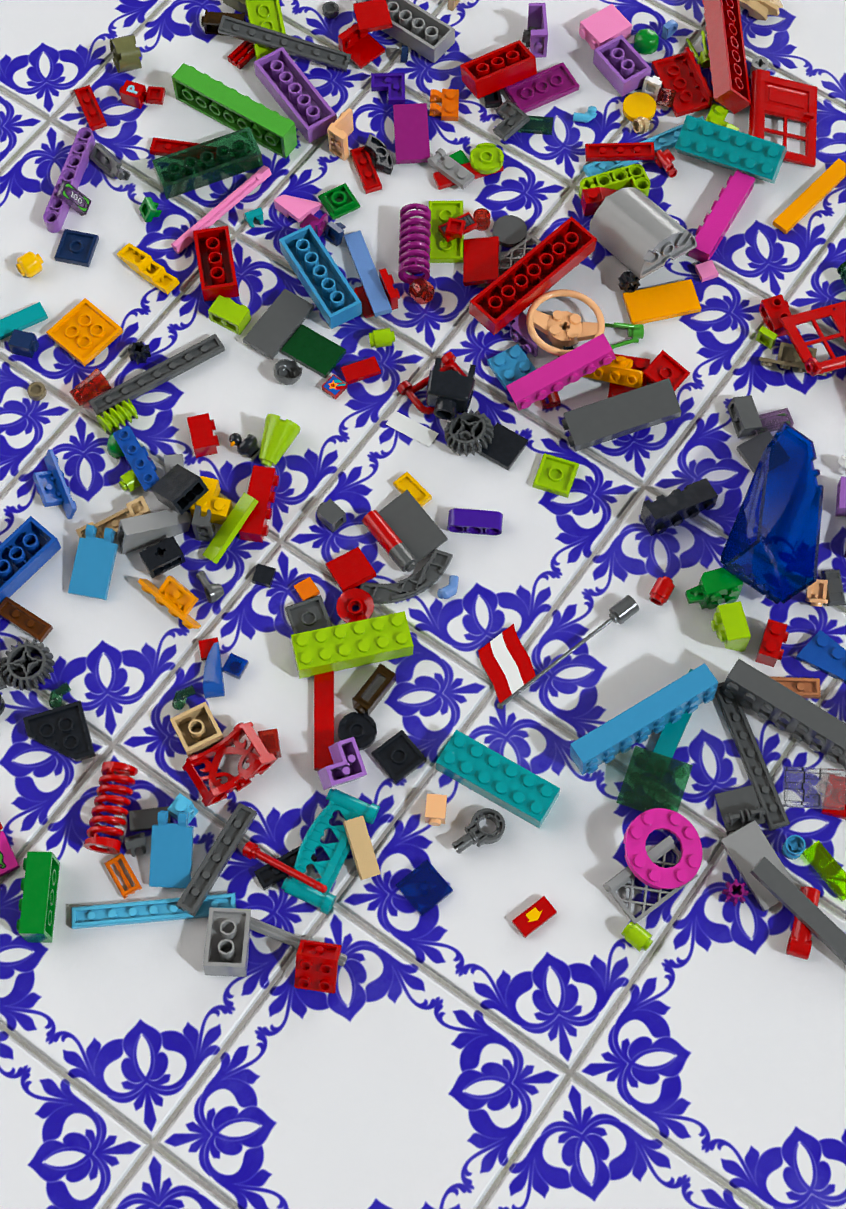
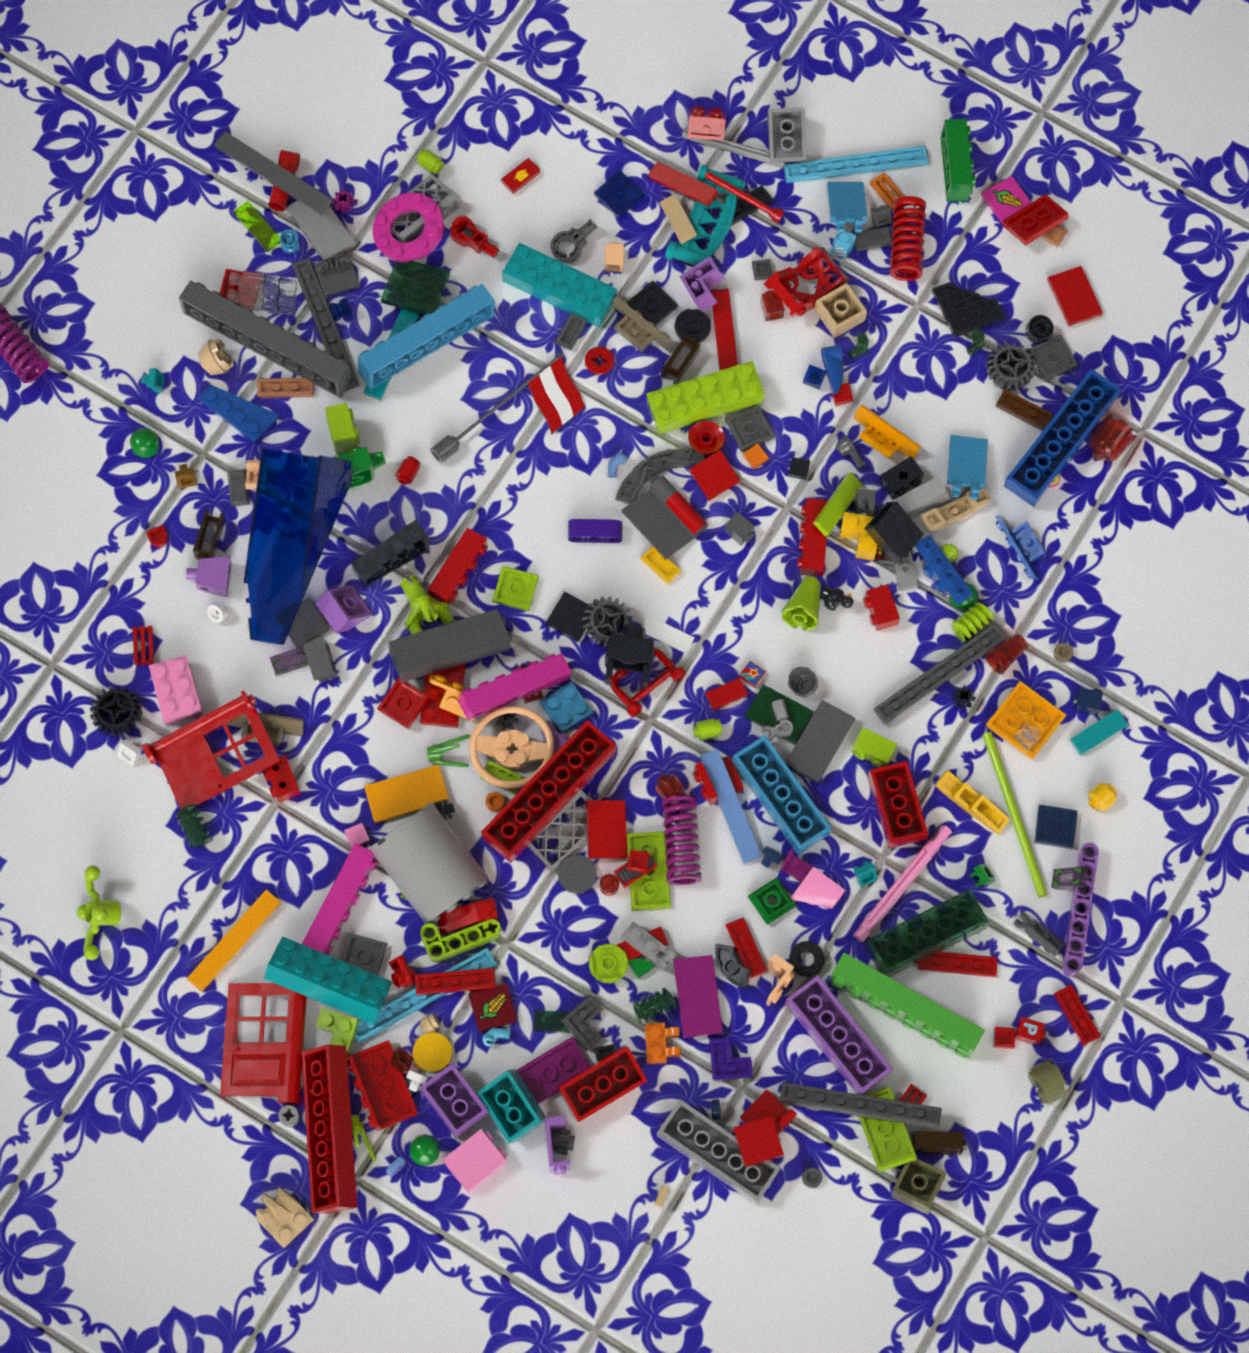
camera: 170 degrees right, 5 degrees up
(84, 309) = (1028, 736): none -> clear tile
(111, 258) = (1014, 814): none -> lime piece
(216, 859) = (806, 204): dark grey plate -> none
(275, 791) = (762, 269): none -> dark grey tile
(310, 334) = (785, 727): none -> light grey bar
(314, 148) = (815, 950): none -> black tyre
(352, 890) = (683, 184): none -> red tile
(418, 724) = (637, 329): none -> dark tan bracket
(450, 124) = (653, 1005): none -> clear green piece
(454, 690) = (594, 354): none -> red gear
(488, 728) = (571, 331): none -> dark grey tile
(573, 56) = (512, 1106): none -> teal brick
(575, 307) = (502, 773): none -> lime plate
(582, 288) = (495, 802): none -> orange tile
(584, 835) = (478, 242): none -> red piece
(586, 133) = (492, 1008): none -> dark red tile
(612, 494) = (458, 566): none -> red brick
(646, 453) = (423, 606): none -> lime wheel
(699, 179) = (364, 953): none -> dark grey tile
(723, 461) = (343, 608): none -> medium lavender slope
(735, 765) = (340, 309): none -> clear blue wheel
(766, 337) = (294, 752): lime tile -> none
(771, 643) = (302, 423): red brick -> none

